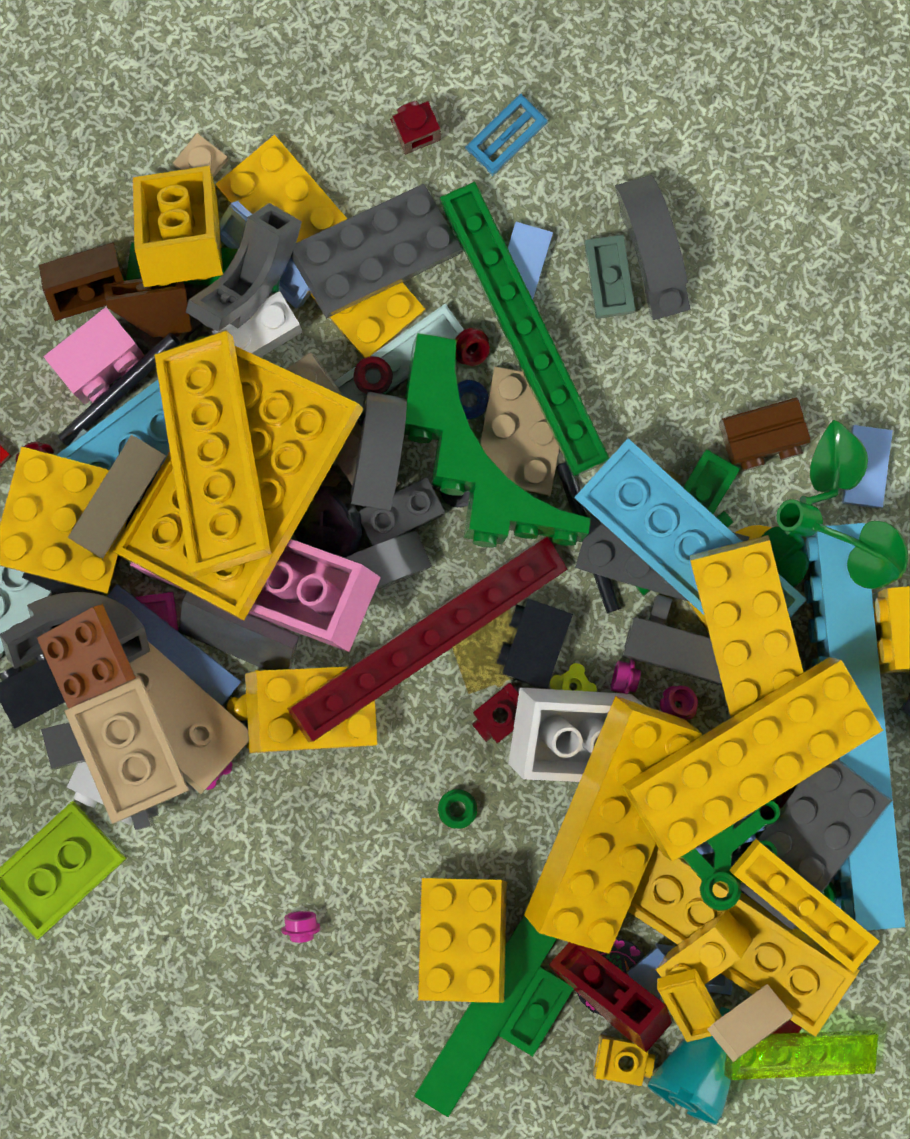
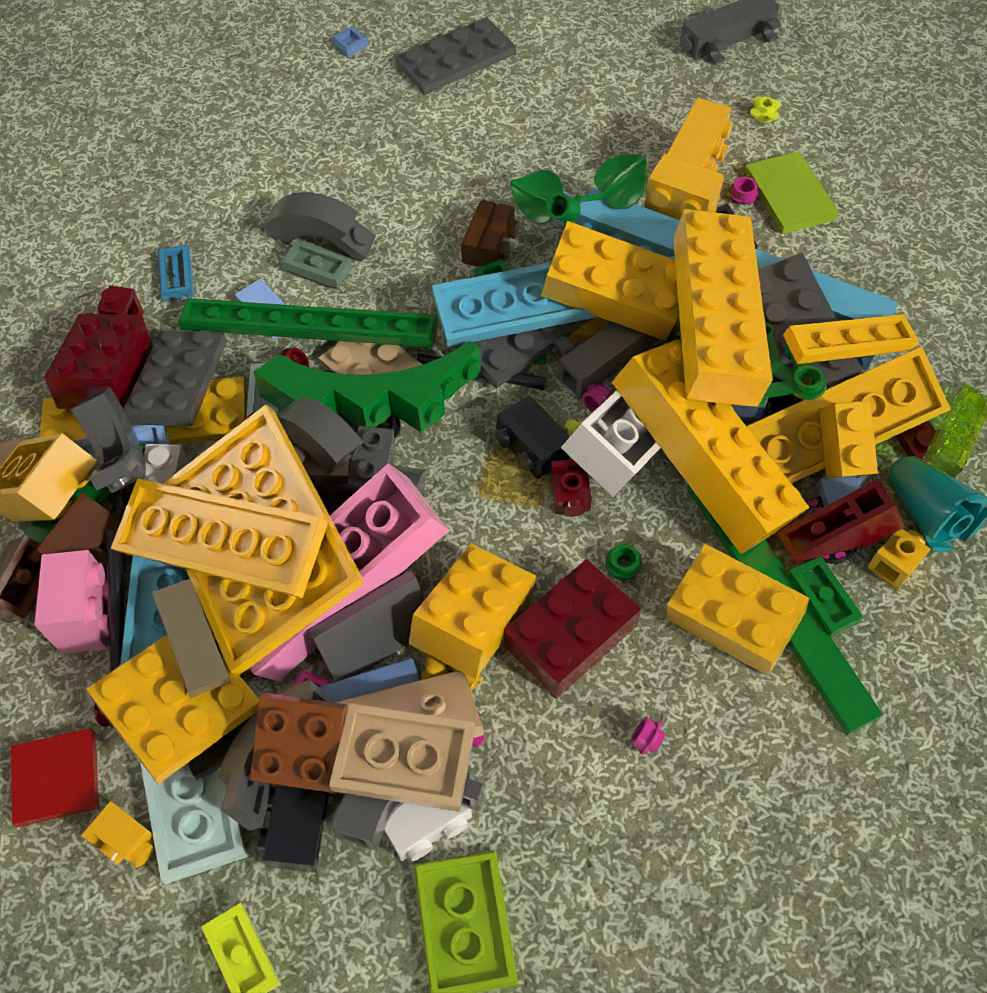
camera: 55 degrees left, 25 degrees down
(340, 165) = (99, 355): none -> dark red brick
(354, 804) = (571, 628): none -> dark red brick
(426, 639) = (479, 502): dark red plate -> none
(689, 1003) = (888, 464): yellow tile -> none
(750, 1022) = (923, 433): tan tile -> none

